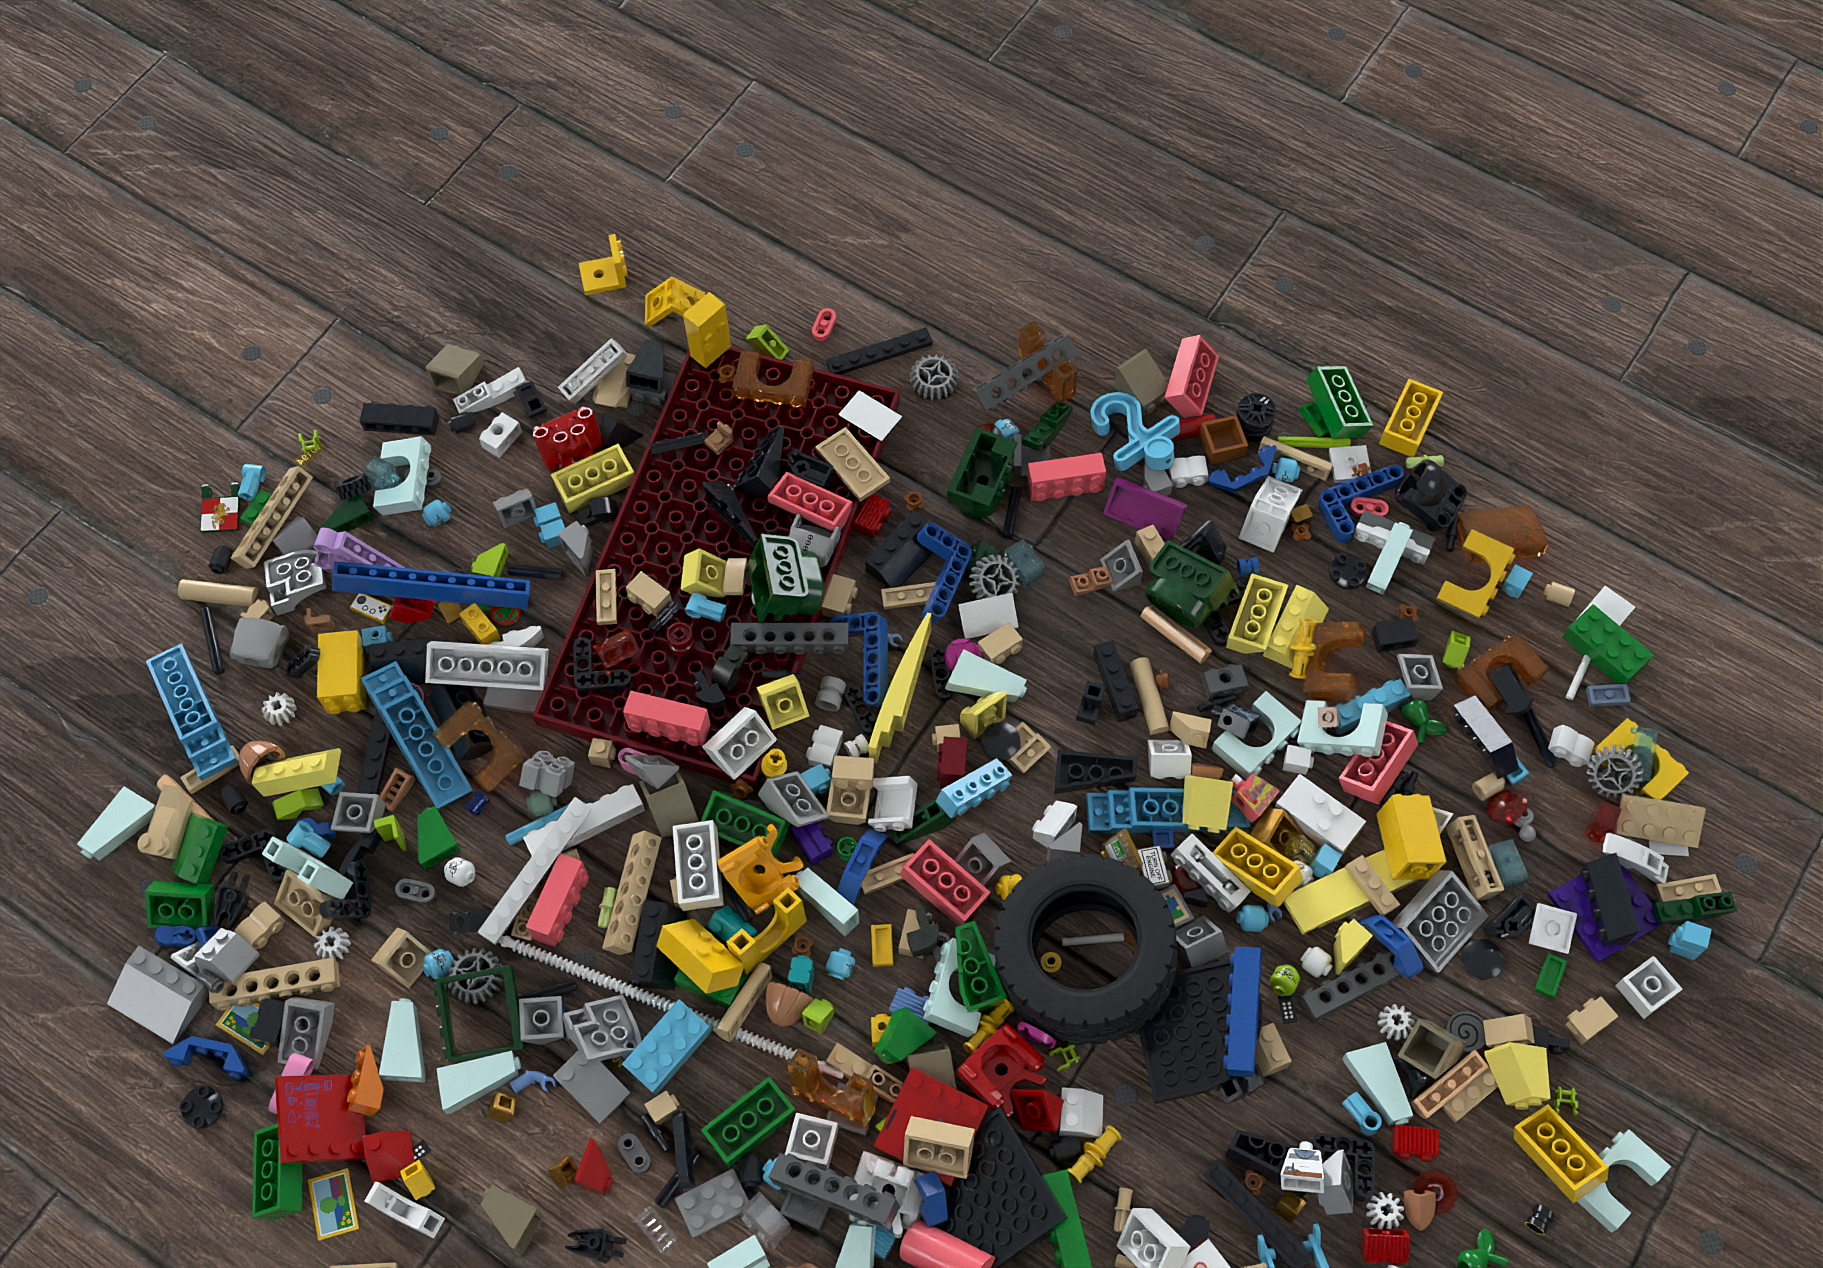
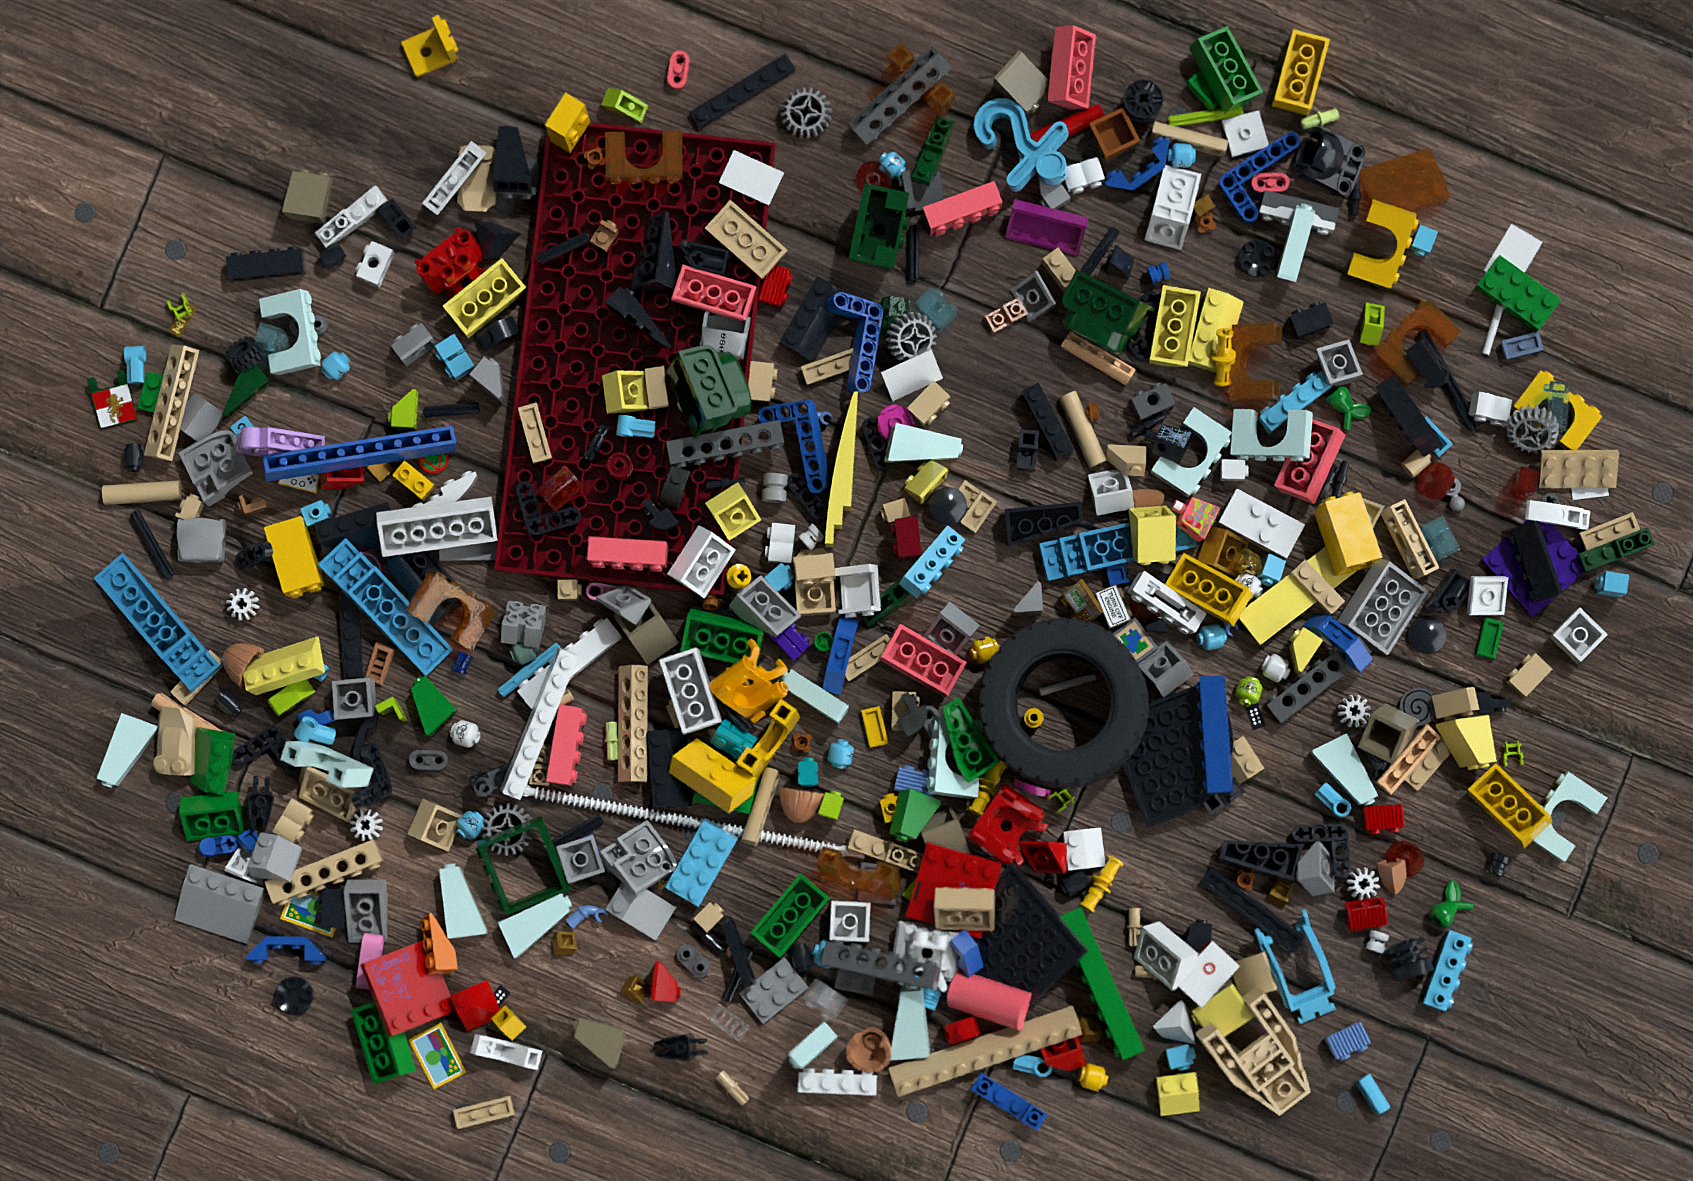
camera: 10 degrees left, 20 degrees up
(210, 981) = (269, 885): dark grey pin -> none
(648, 594) = (575, 423): tan brick -> none
(668, 298) = (516, 75): yellow bracket -> none
(913, 496) = (813, 254): dark orange plate -> none
(1055, 822) = (1013, 581): white slope -> none
(1303, 1170) = (1286, 867): white torso -> none
(1328, 717) = (1256, 427): bracket -> none
(1360, 470) = (1256, 144): dark orange plate -> none
(1412, 609) = (1325, 289): dark orange plate -> none
(1559, 594) = (1466, 245): tan brick -> none

